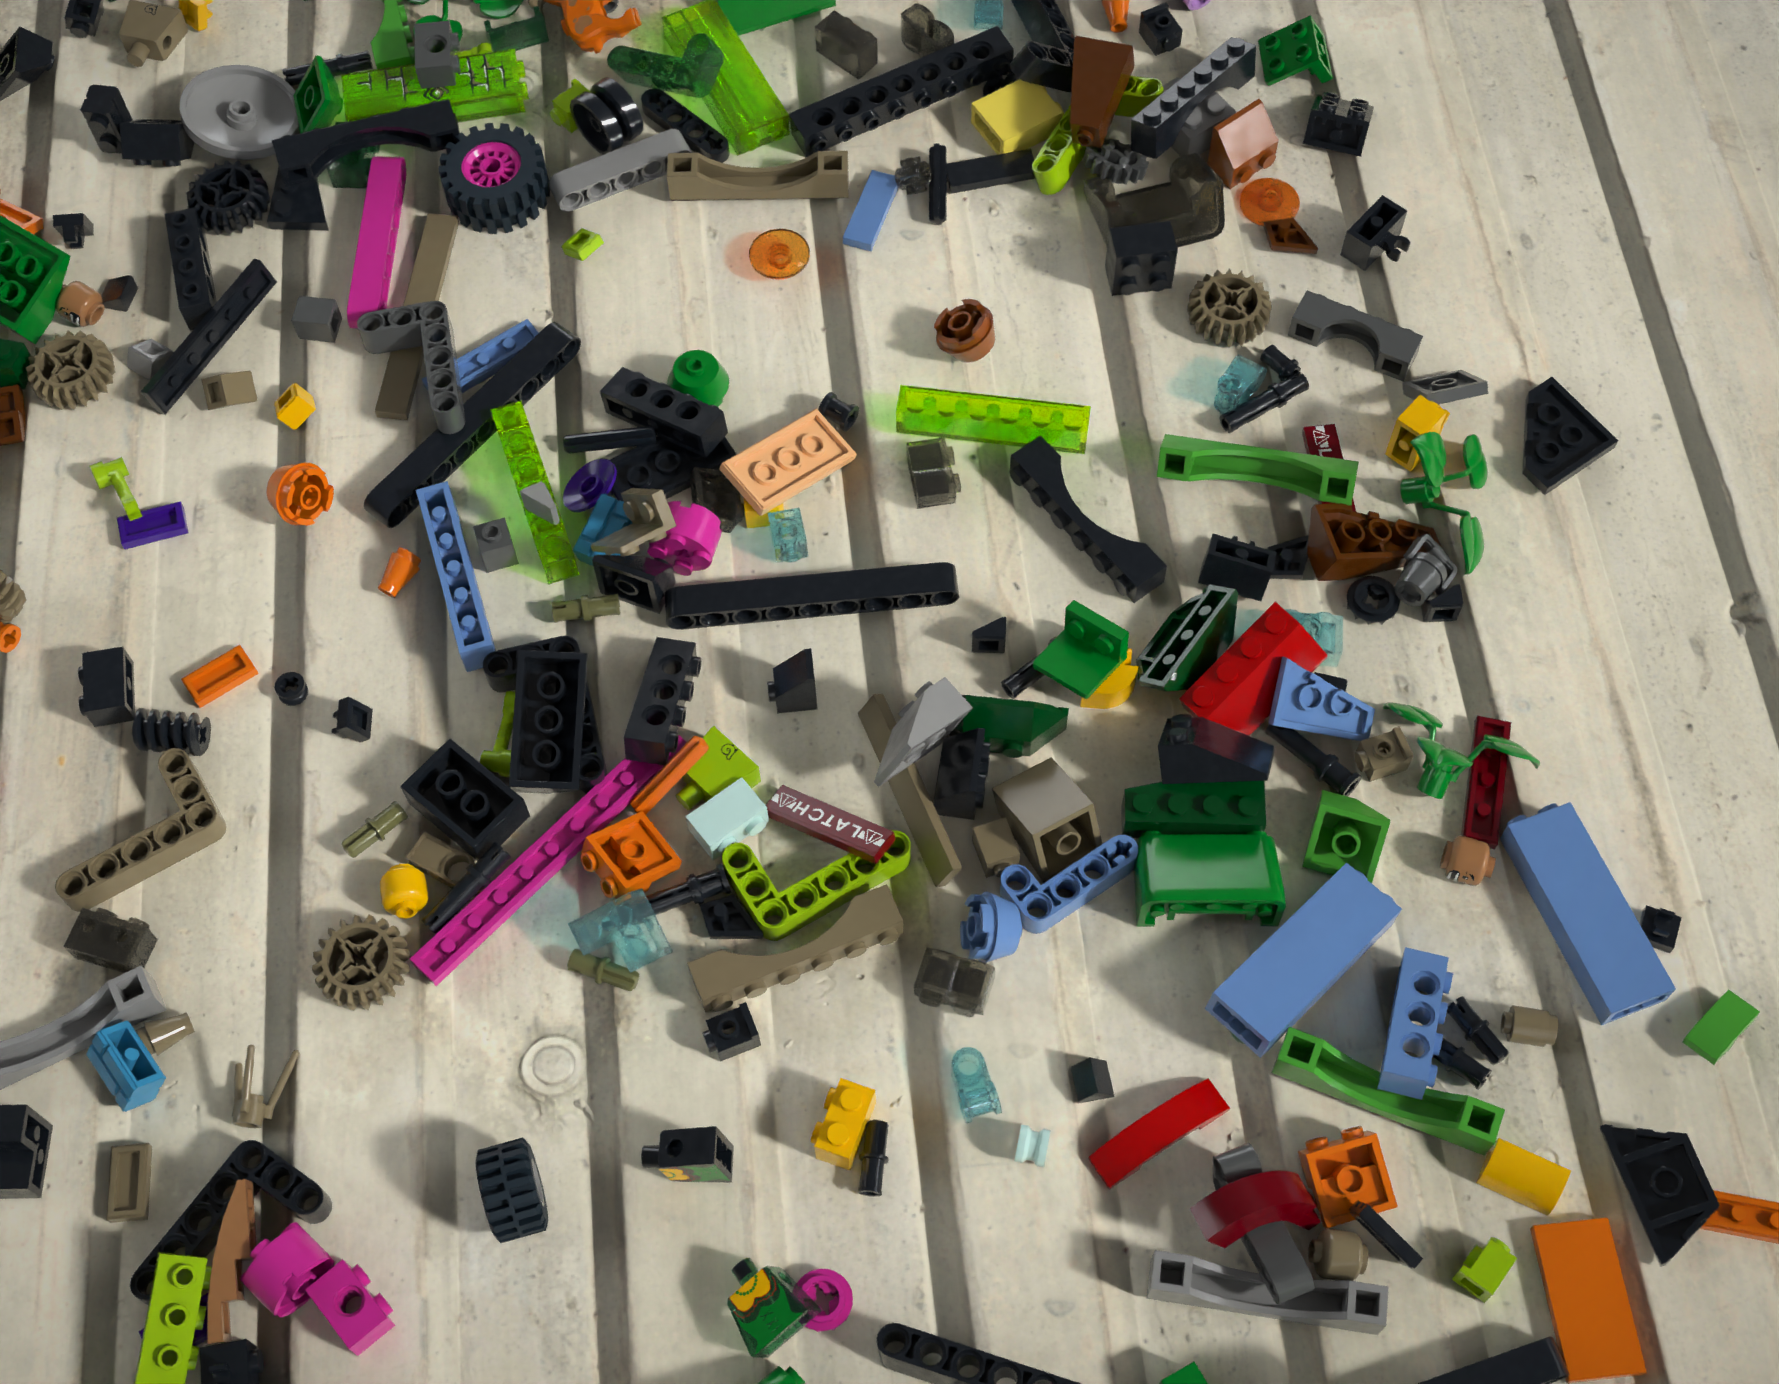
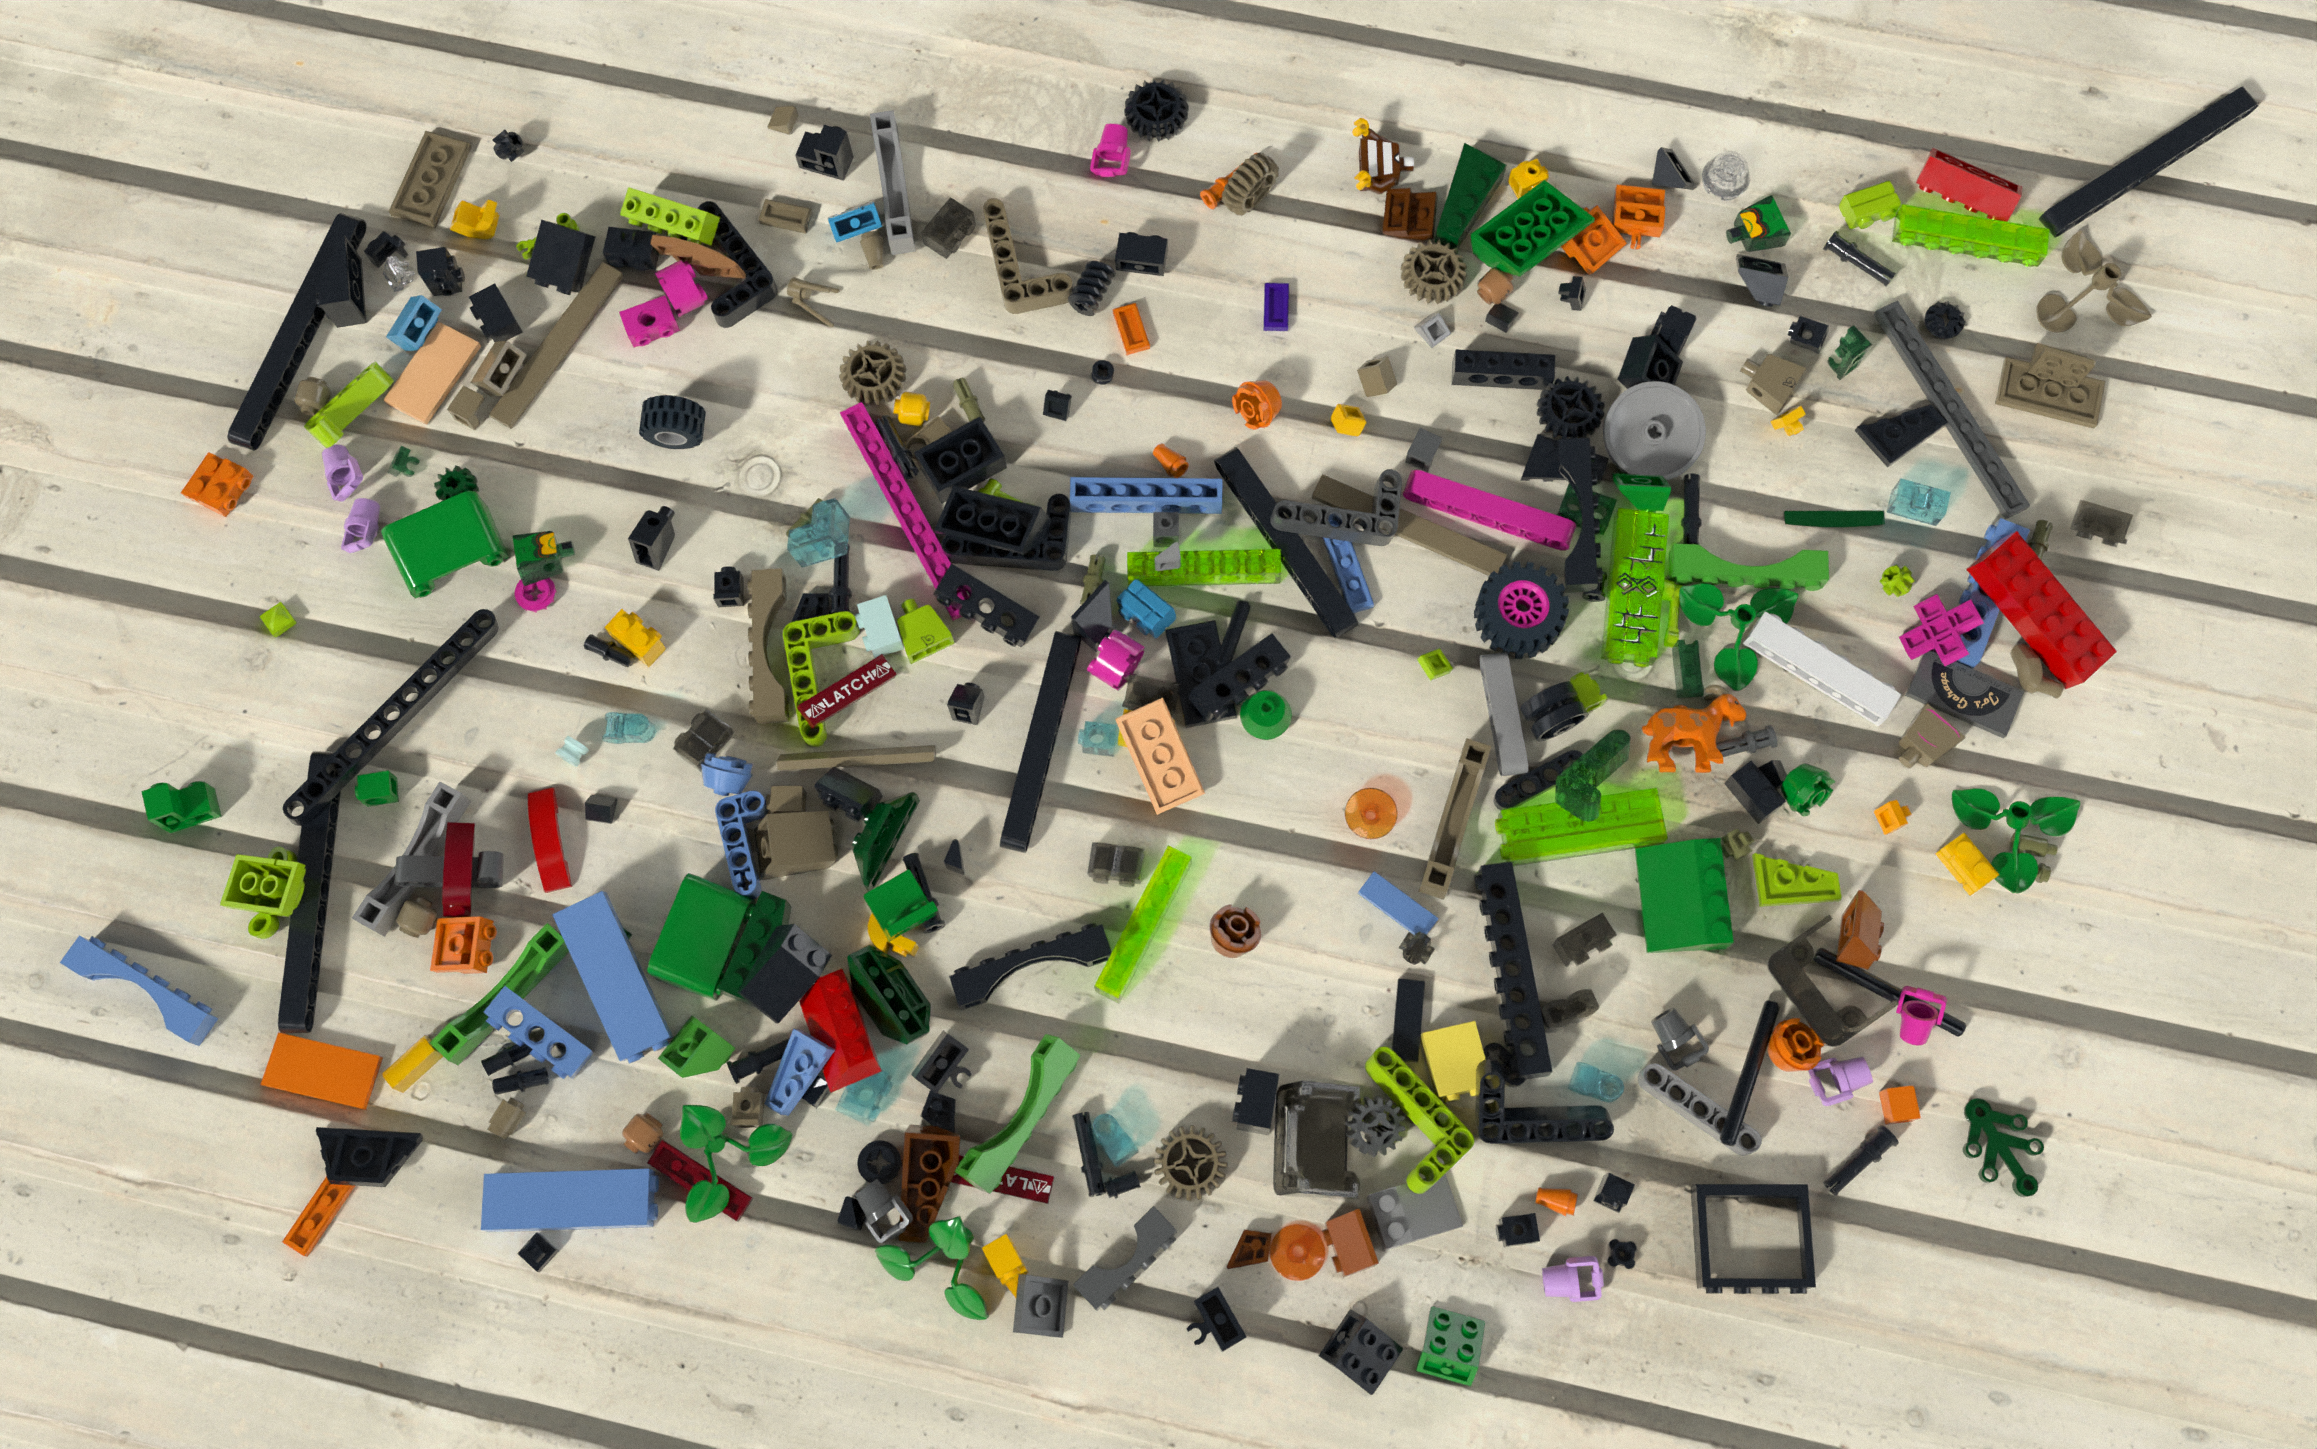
camera: 110 degrees right, 10 degrees up
(113, 474) = (1329, 285): lime brick -> none
(208, 337) = (1433, 372): black tile -> none
(435, 54) = (1672, 582): dark grey brick -> none
(588, 484) = (1195, 608): dark purple dish -> none
(628, 856) = (879, 556): orange plate -> none
(649, 519) = (1120, 616): dark tan bracket -> none
(669, 774) = (924, 595): orange axle -> none
(848, 412) = (1200, 811): black bush -> none
(922, 727) = (881, 767): light grey slope -> none
(938, 184) = (1404, 968): black axle -> none
(1098, 85) = (1438, 1123): reddish brown slope -> none
(1161, 121) = (1438, 1252): black arch -> none
(1385, 1234) = (413, 950): black tile -> none
(1486, 1269) = (366, 1009): lime brick -> none
(1559, 436) = (966, 1388): black plate -> none
(1721, 1027) = (447, 1256): bright green slope -> none

